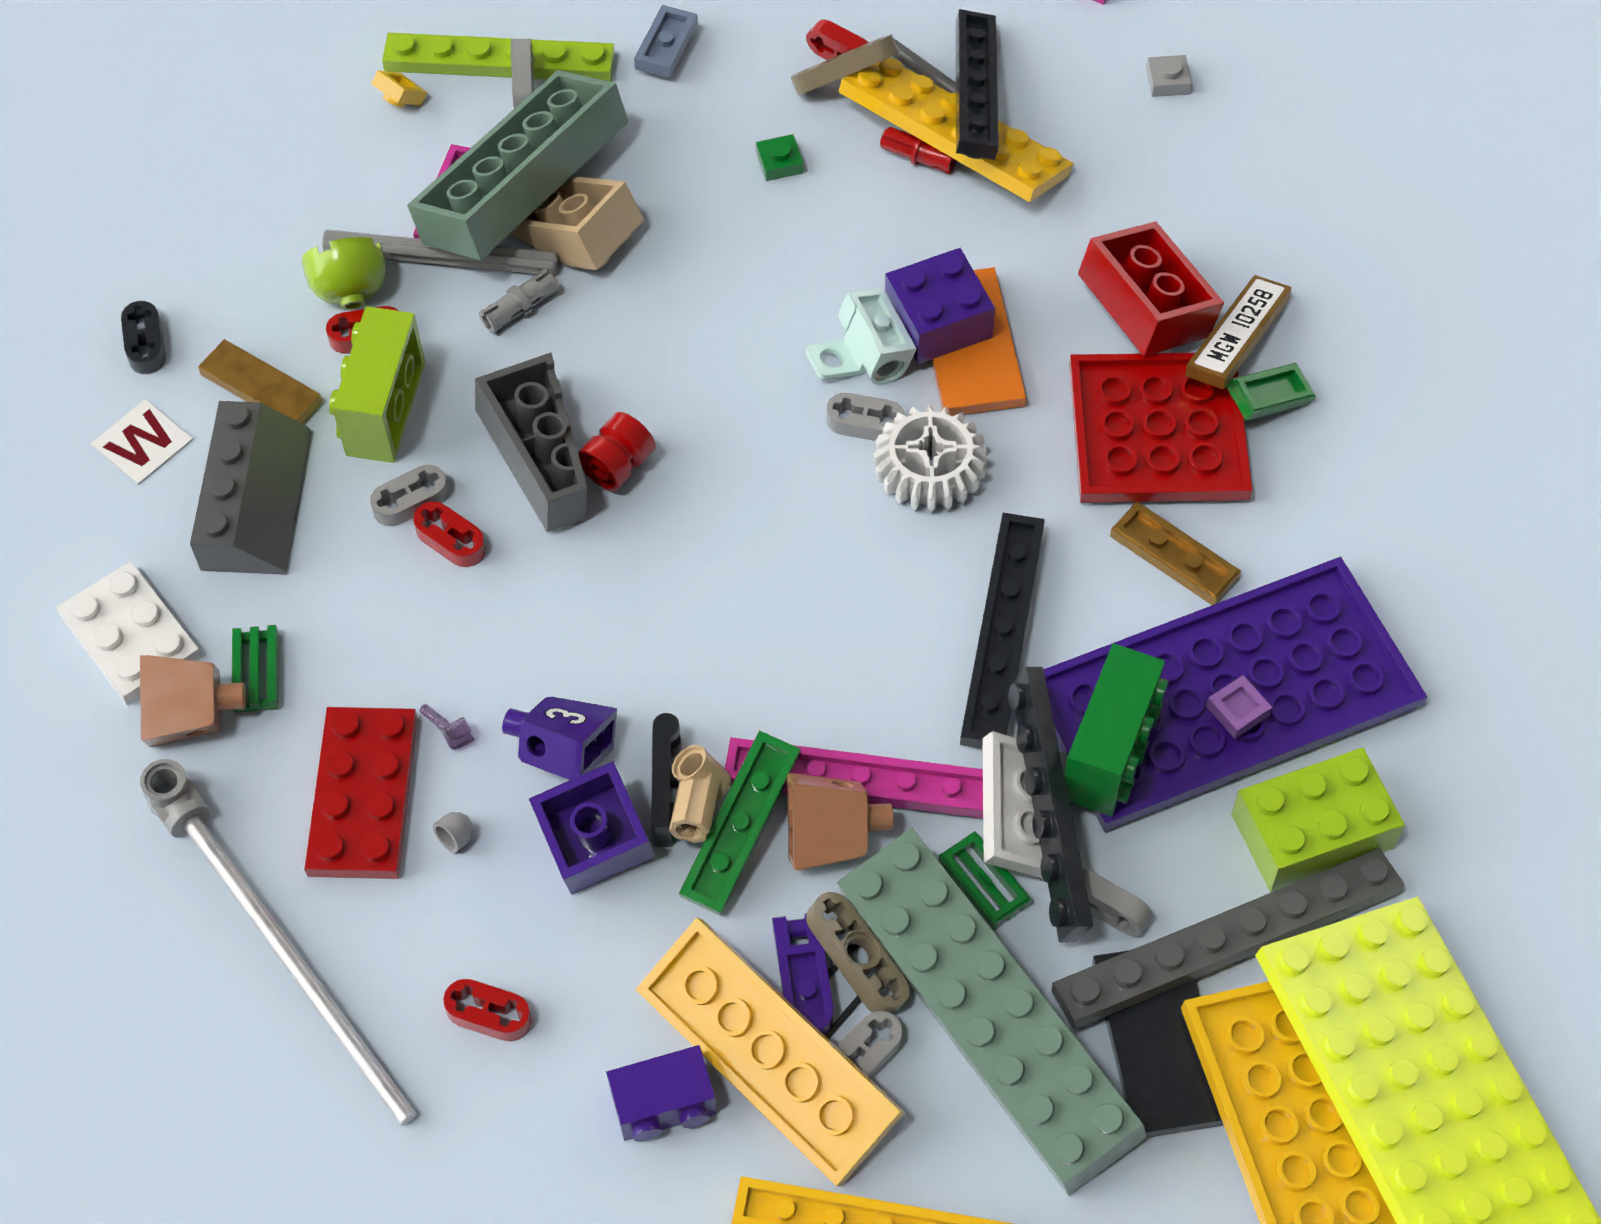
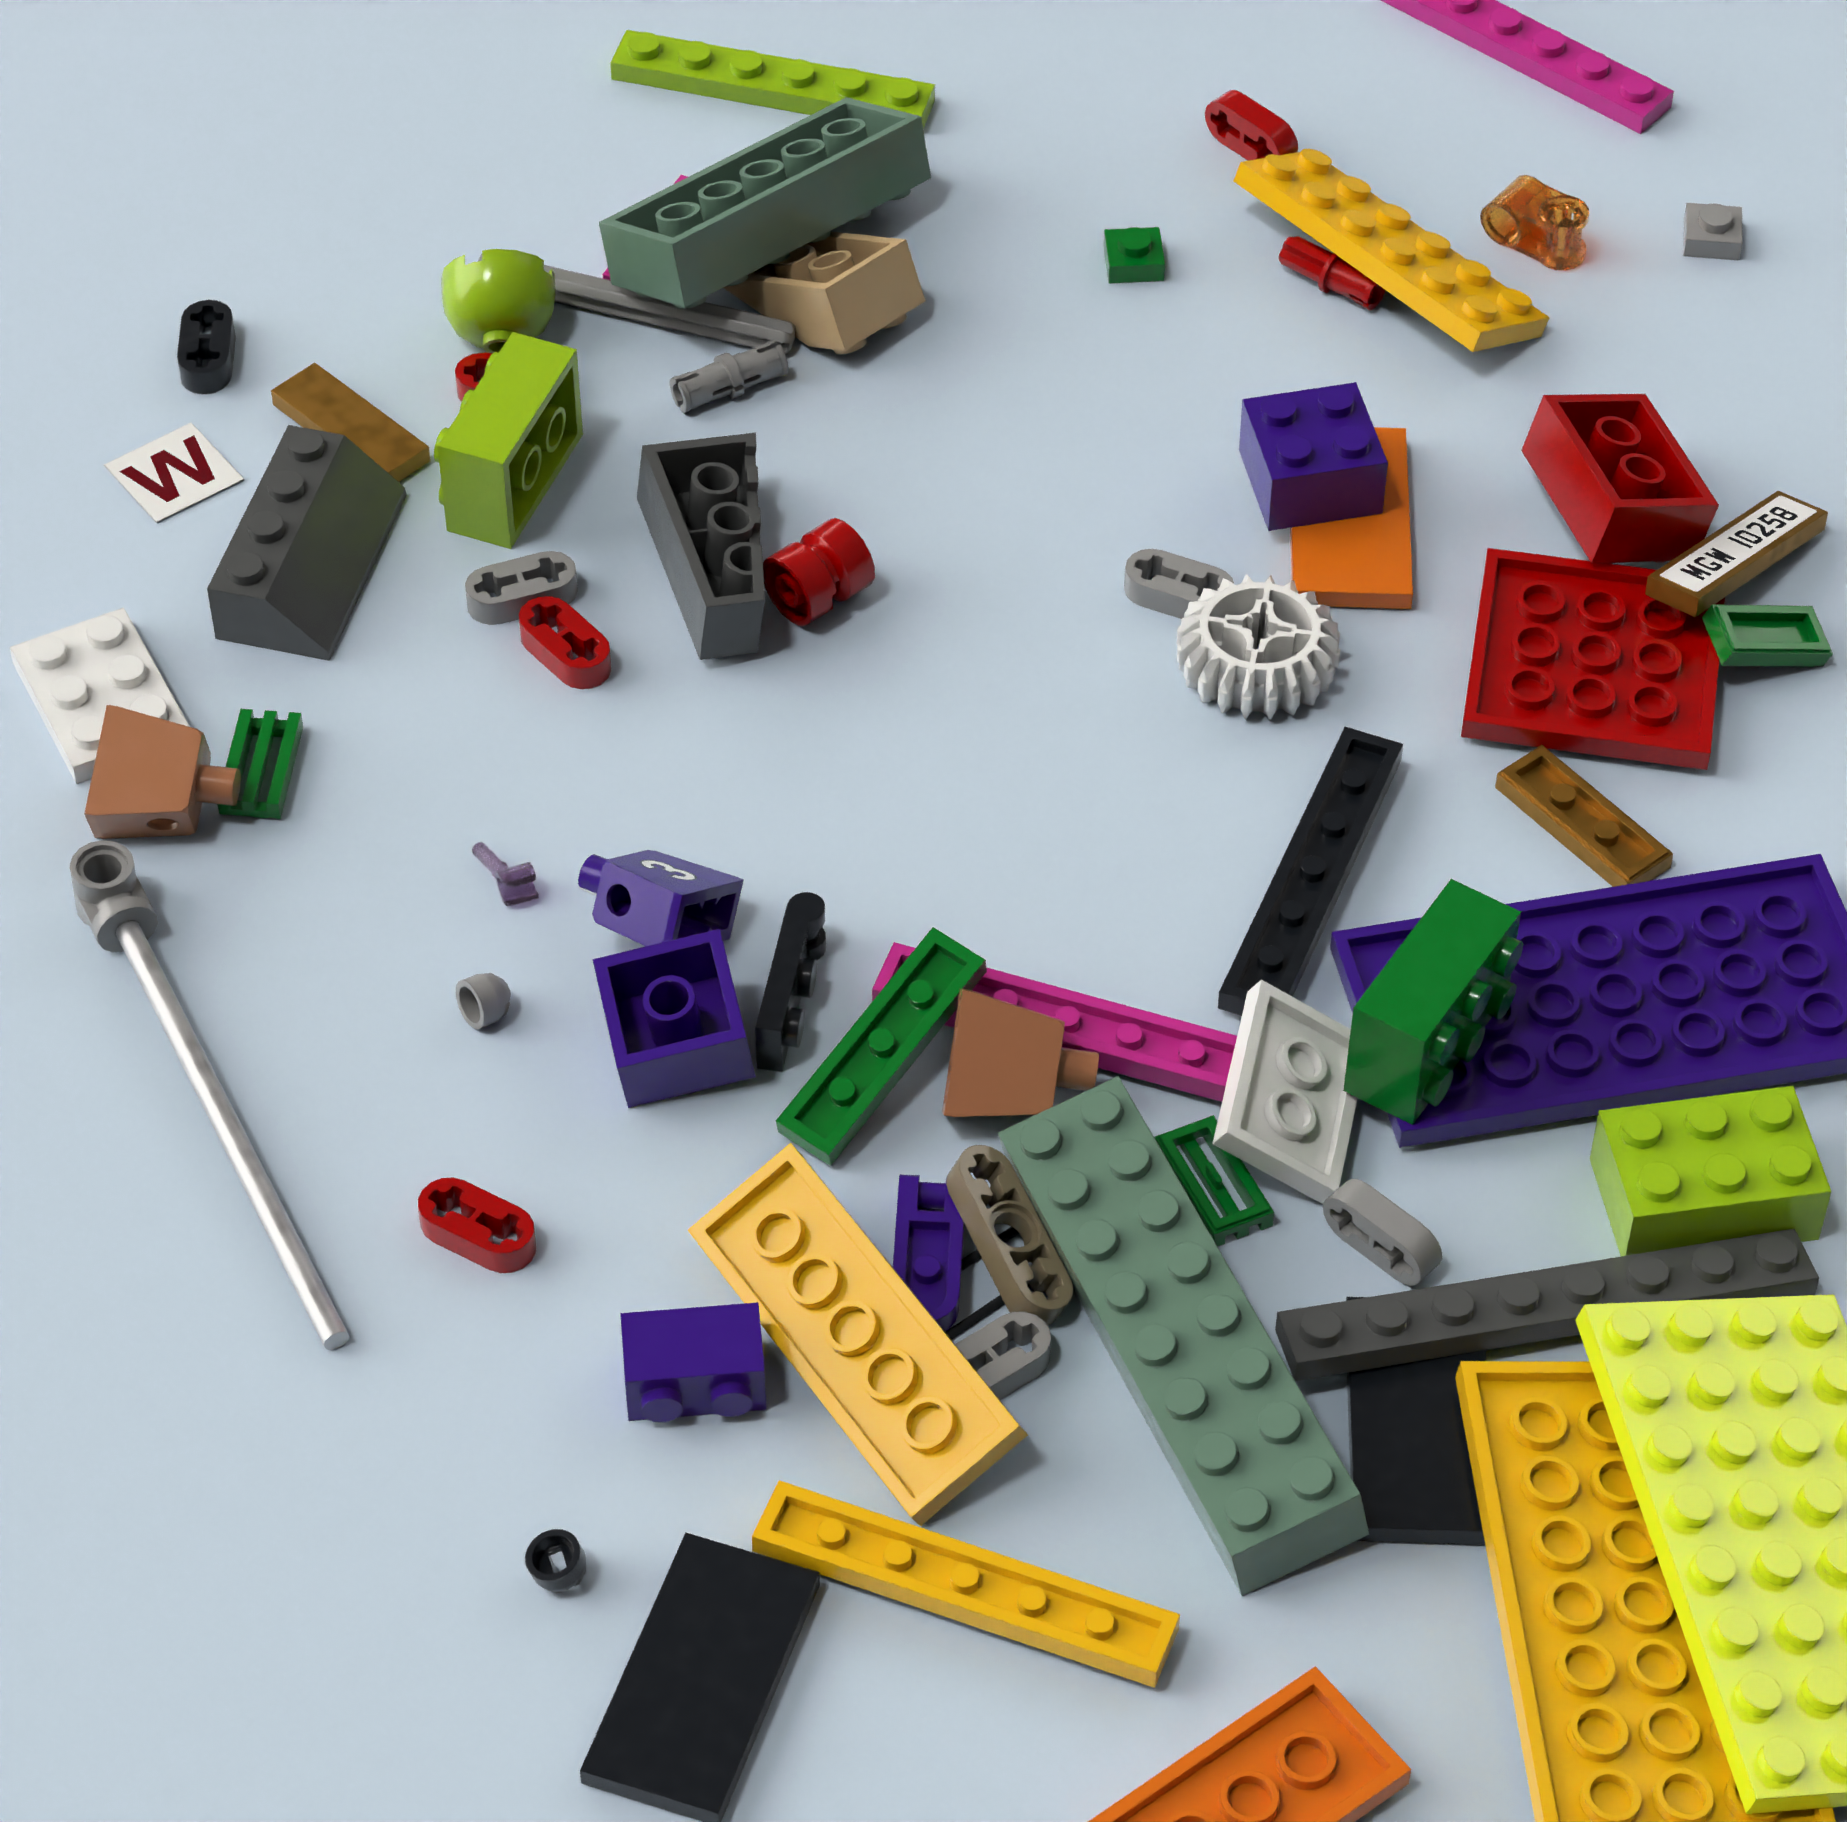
camera: 10 degrees right, 10 degrees down
(361, 793) = (368, 936): red plate -> none
(398, 89) = (625, 98): yellow plate -> none
(522, 69) = (799, 88): light grey beam -> none
(666, 41) = (1007, 92): sand blue plate -> none
(700, 786) = (835, 989): tan piece -> none
(844, 64) = (1249, 145): dark tan beam -> none
(872, 343) = (1213, 489): light aqua piece -> none
(924, 68) = (1354, 166): dark grey bar -> none
(976, 85) = (1428, 196): black plate -> none
(1049, 85) = (1534, 218): none -> clear orange piece
(1052, 811) = (1323, 1094): black plate -> none
(1239, 706) = (1625, 1011): medium lavender plate -> none

